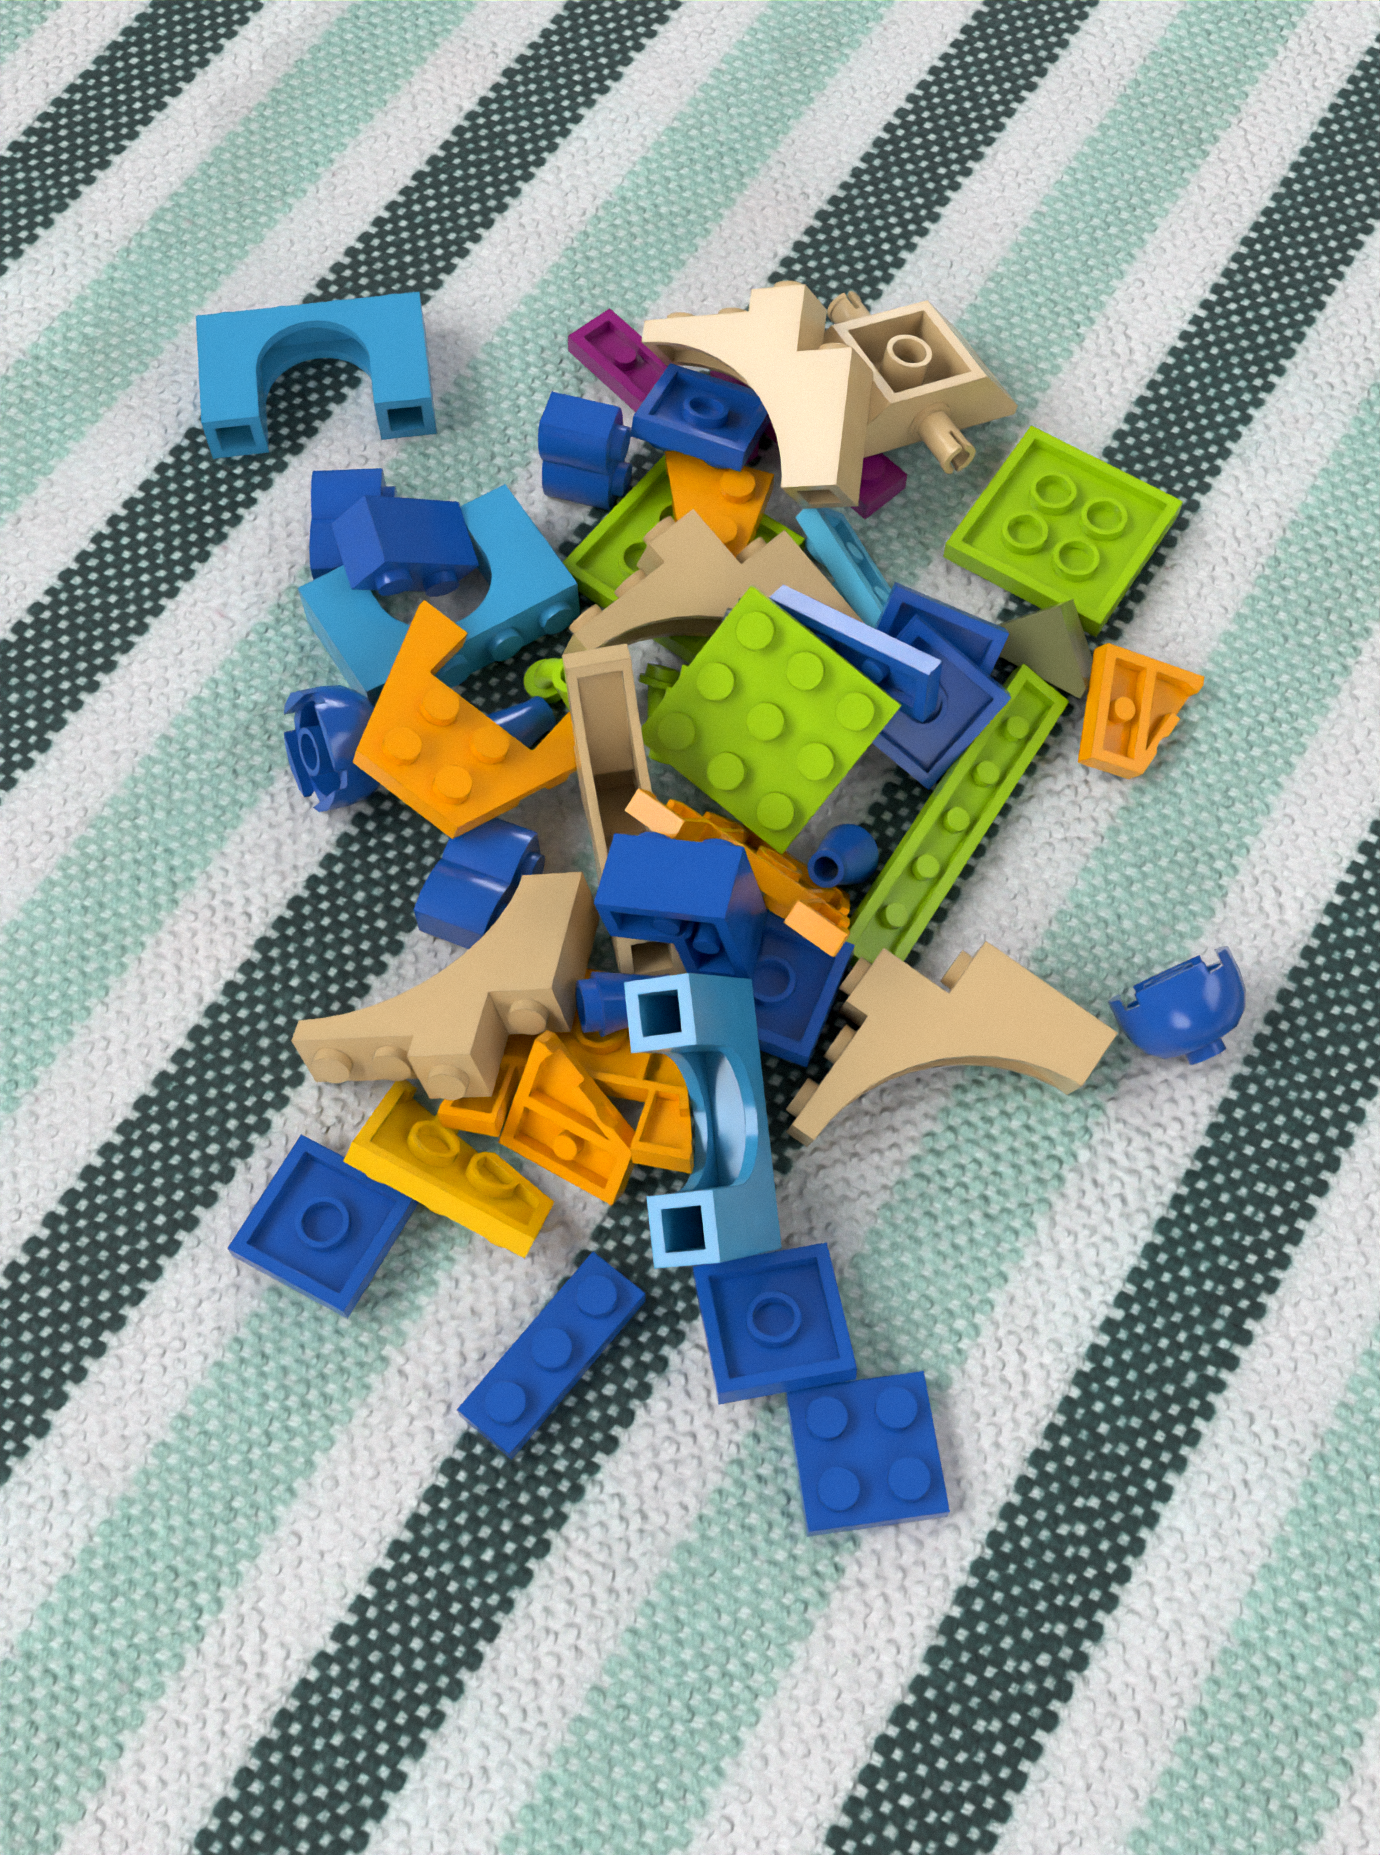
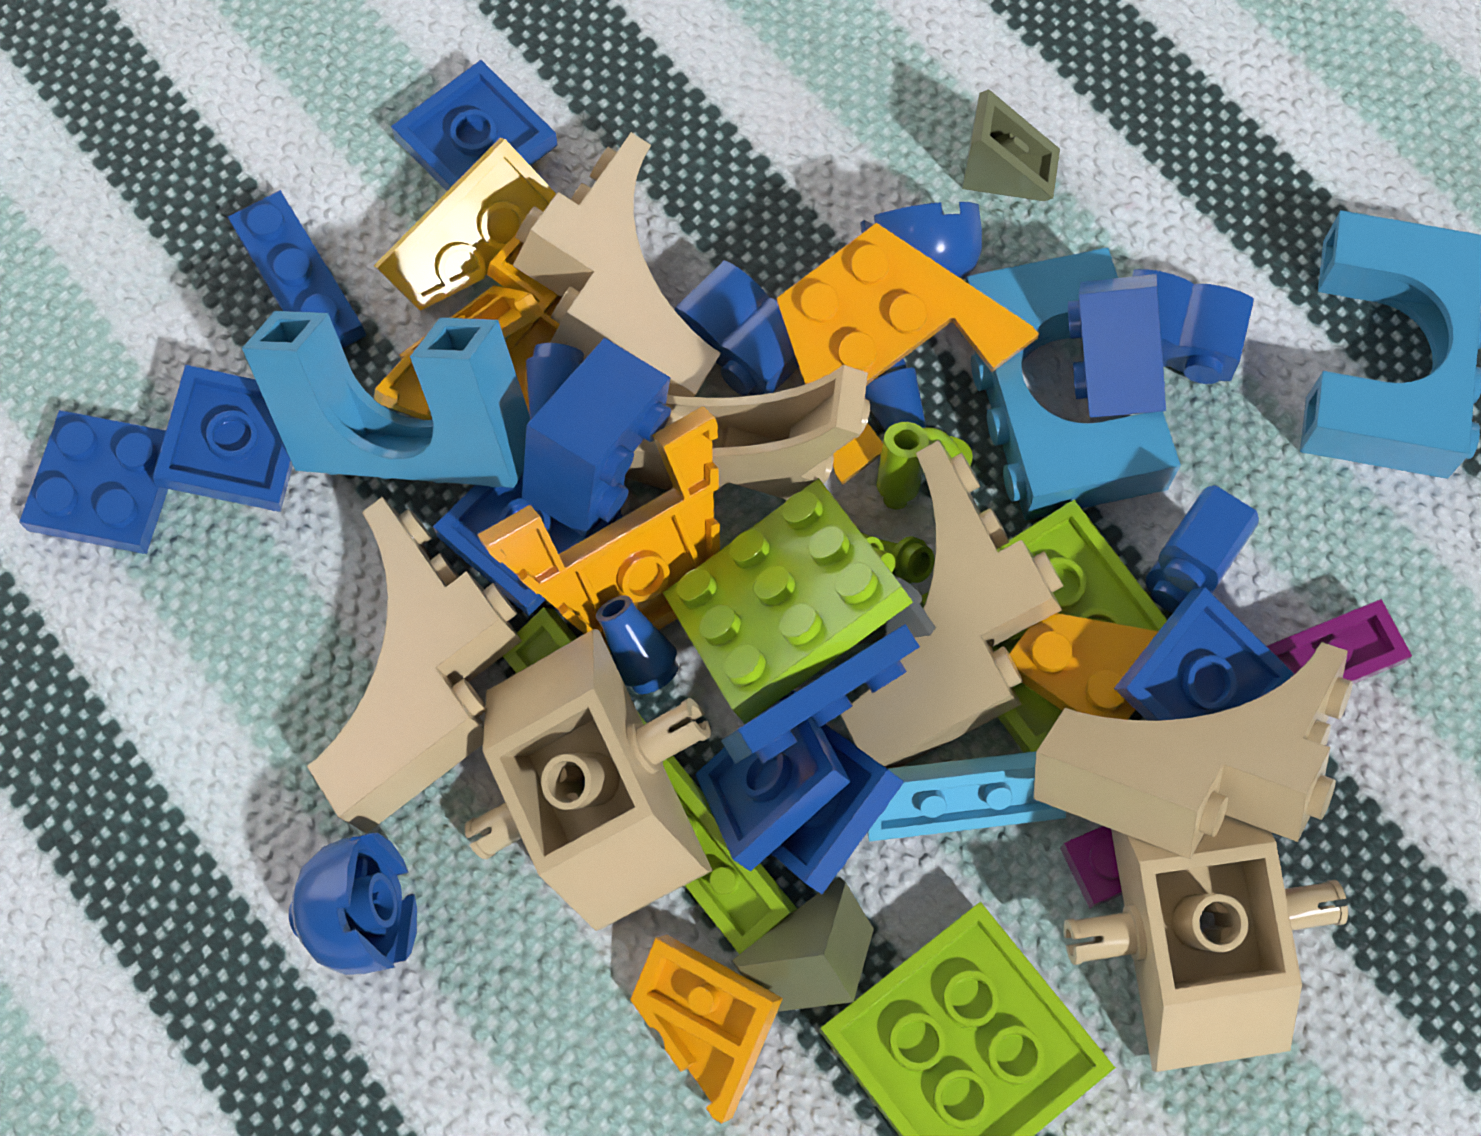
camera: 110 degrees right, 5 degrees up
(203, 719) = (1009, 154): none -> olive slope
(980, 851) = (624, 832): none -> tan slope

